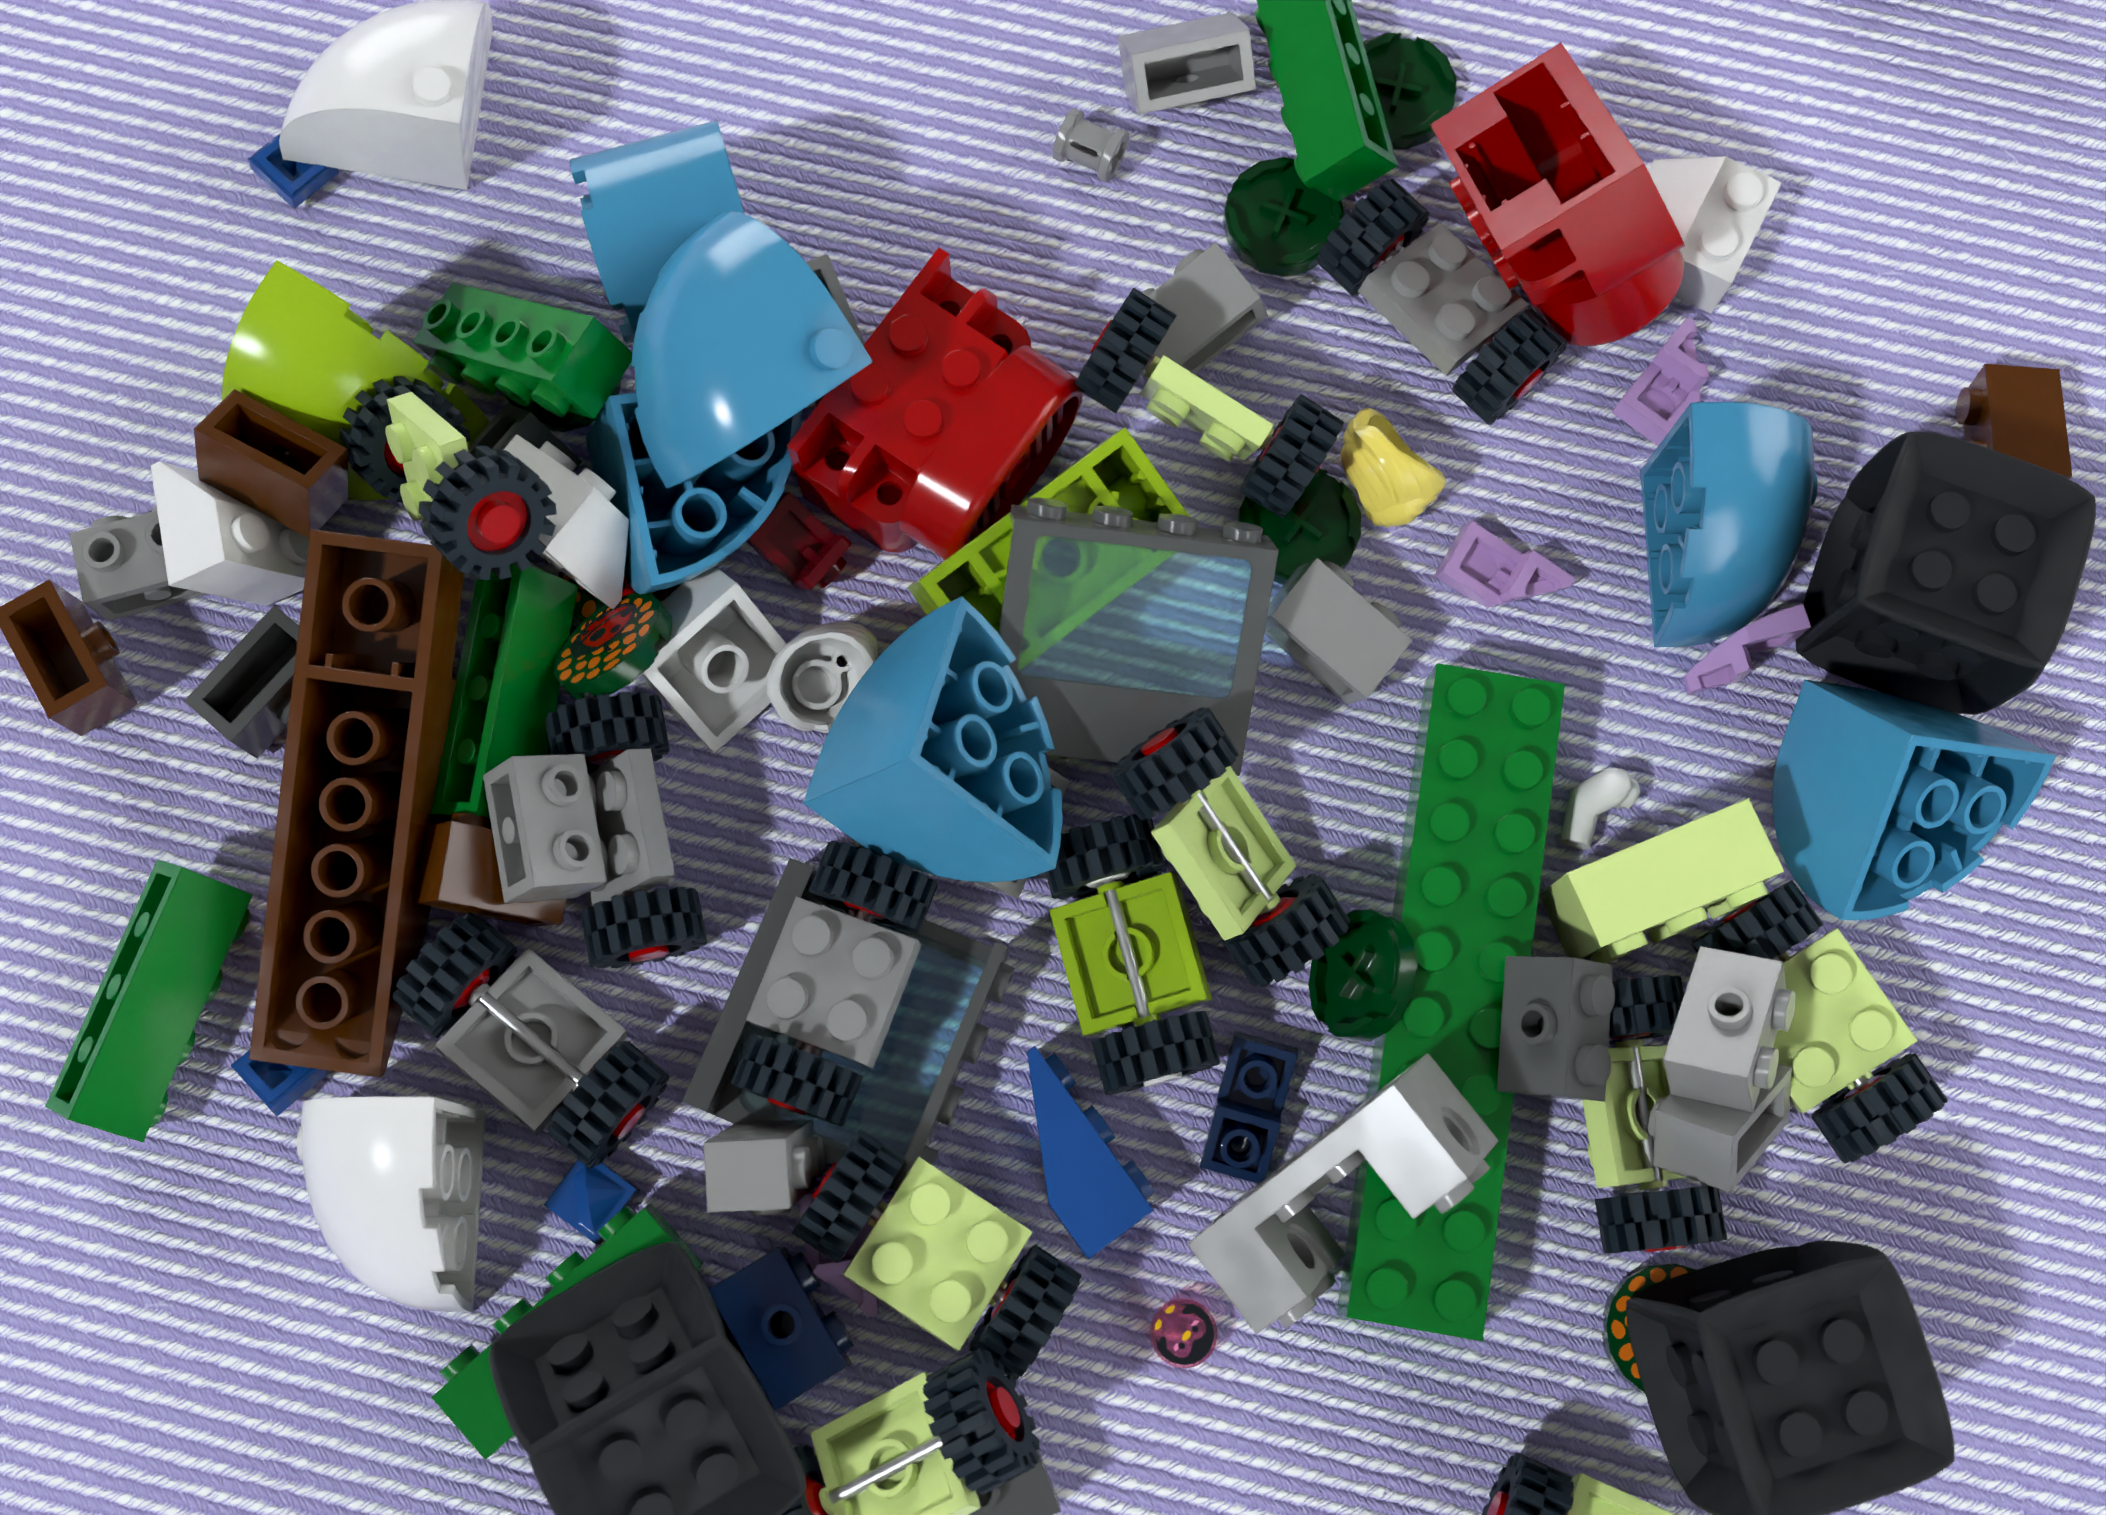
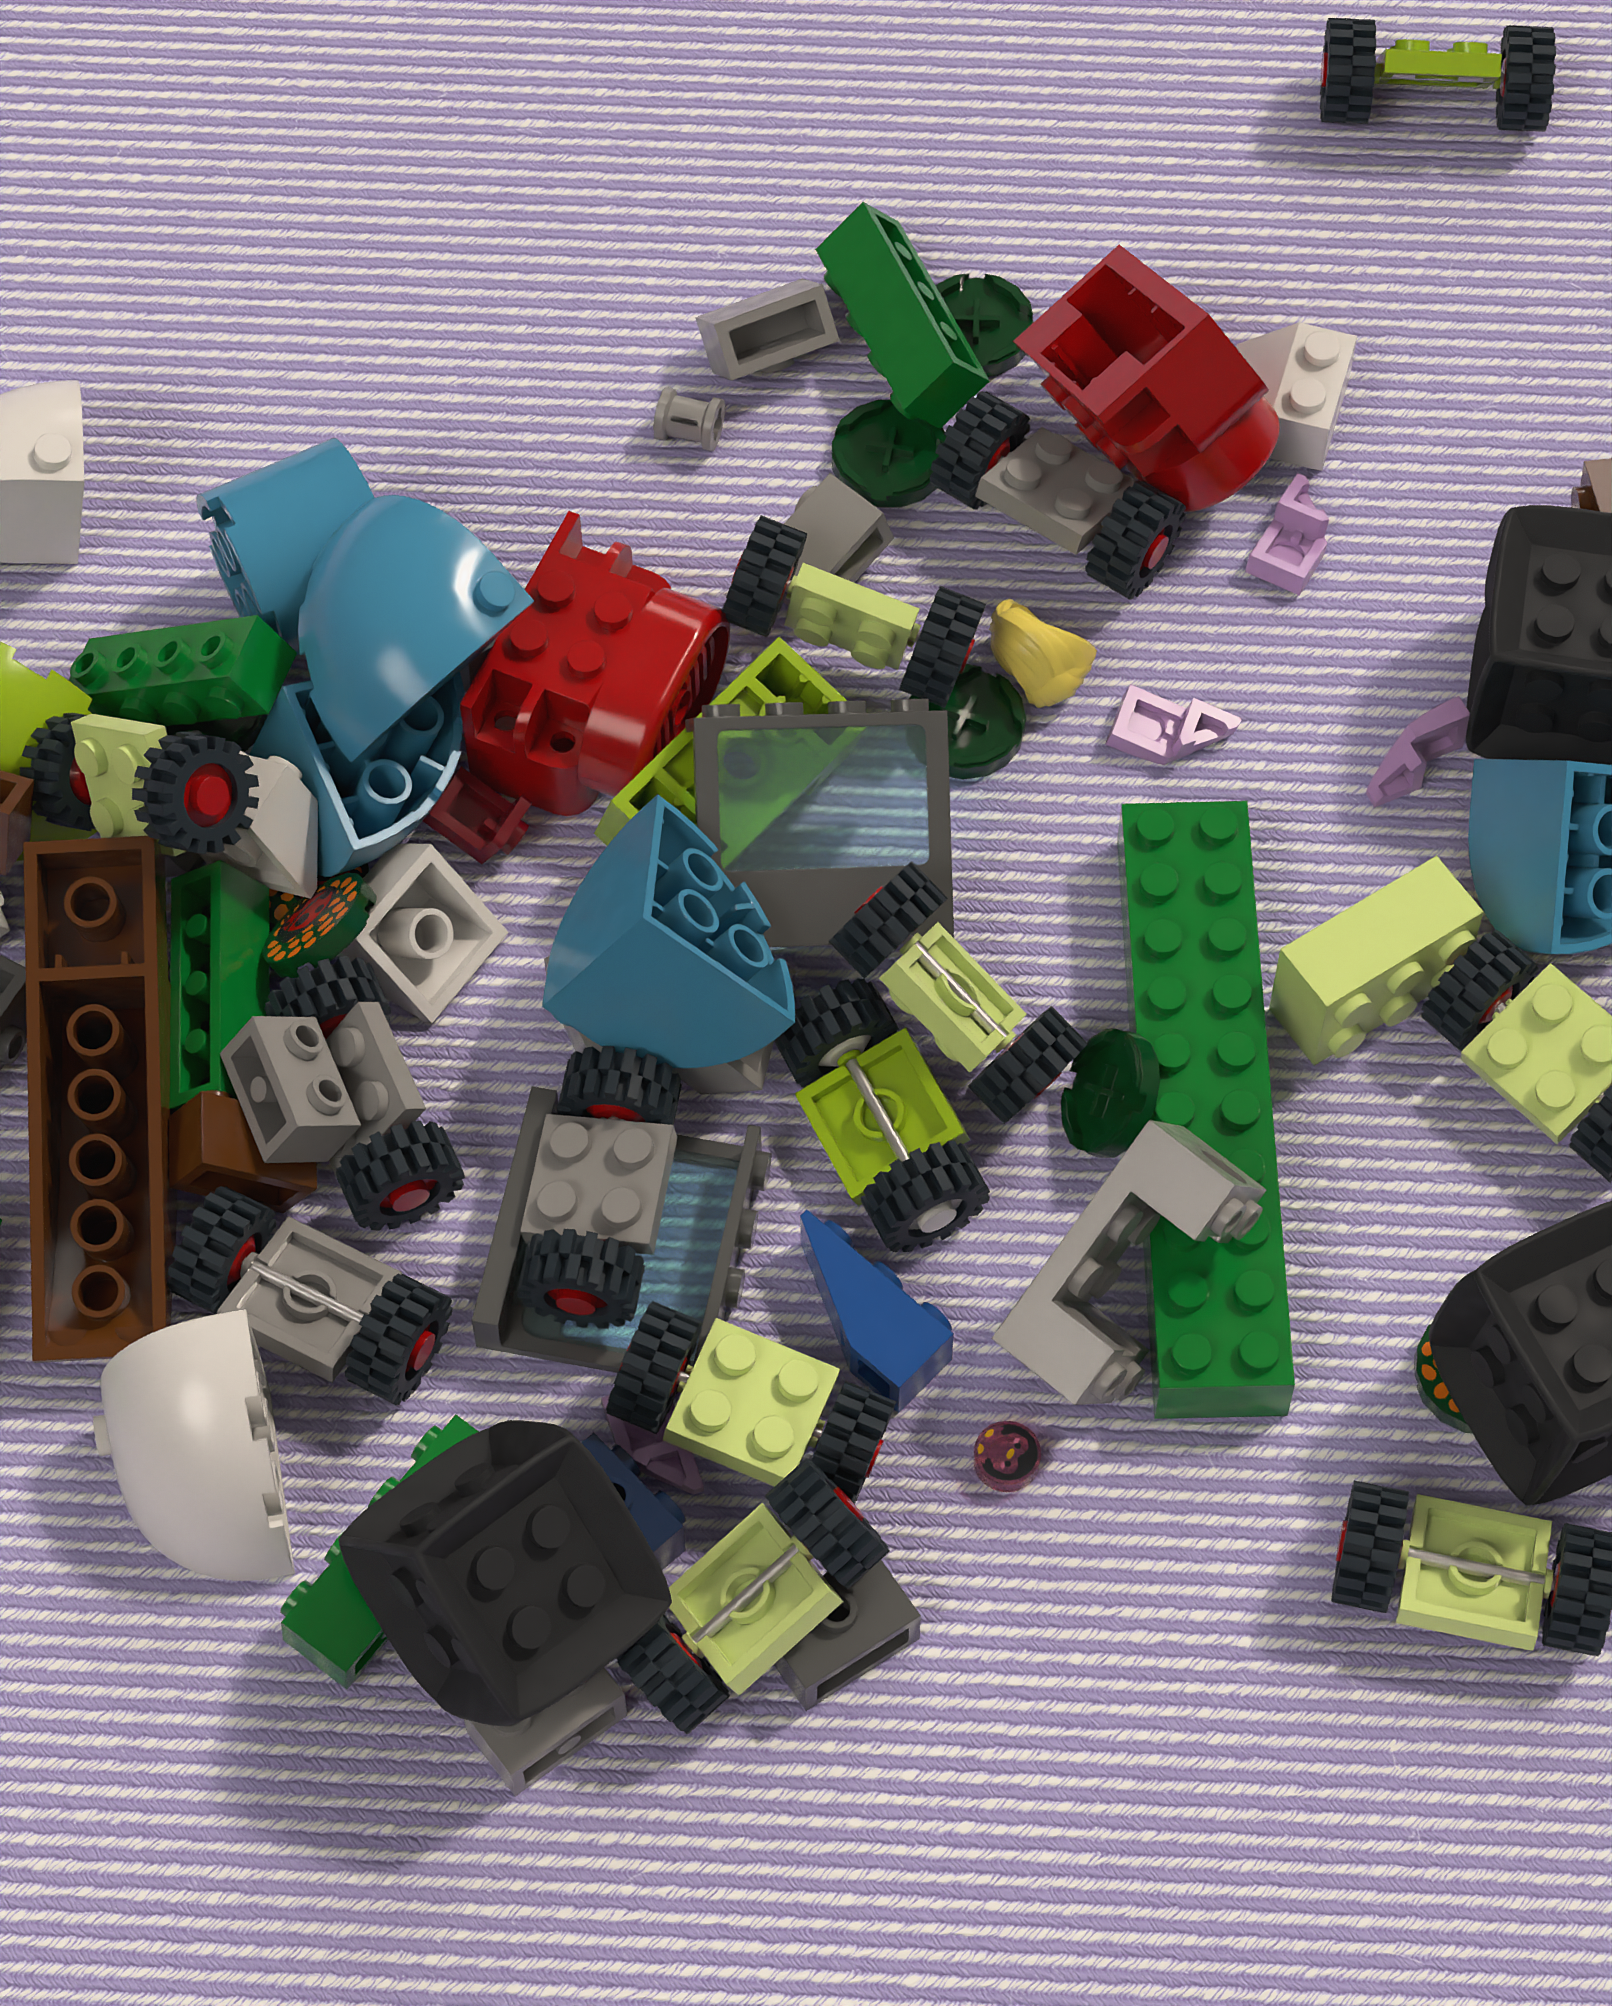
camera: 10 degrees left, 15 degrees down
(277, 1083) = (57, 1386): blue tile -> none
(591, 1198) = (390, 1439): blue tile -> none
(762, 1166) = (565, 1358): light grey brick -> none
(807, 681) = (521, 923): white hair -> none
(1248, 1107) = (1024, 1233): dark blue slope -> none
(1335, 630) = (1018, 800): light grey brick -> none
(1555, 1027) = (1300, 1090): dark grey brick -> none
(1593, 797) = (1312, 898): white arm -> none
(1620, 1138) = (1400, 1164): plate -> none
(1718, 1141) = (1478, 1148): light grey brick -> none
(1724, 517) = (1367, 629): dark azure brick -> none
(1728, 1029) = (1461, 1057): light grey brick -> none

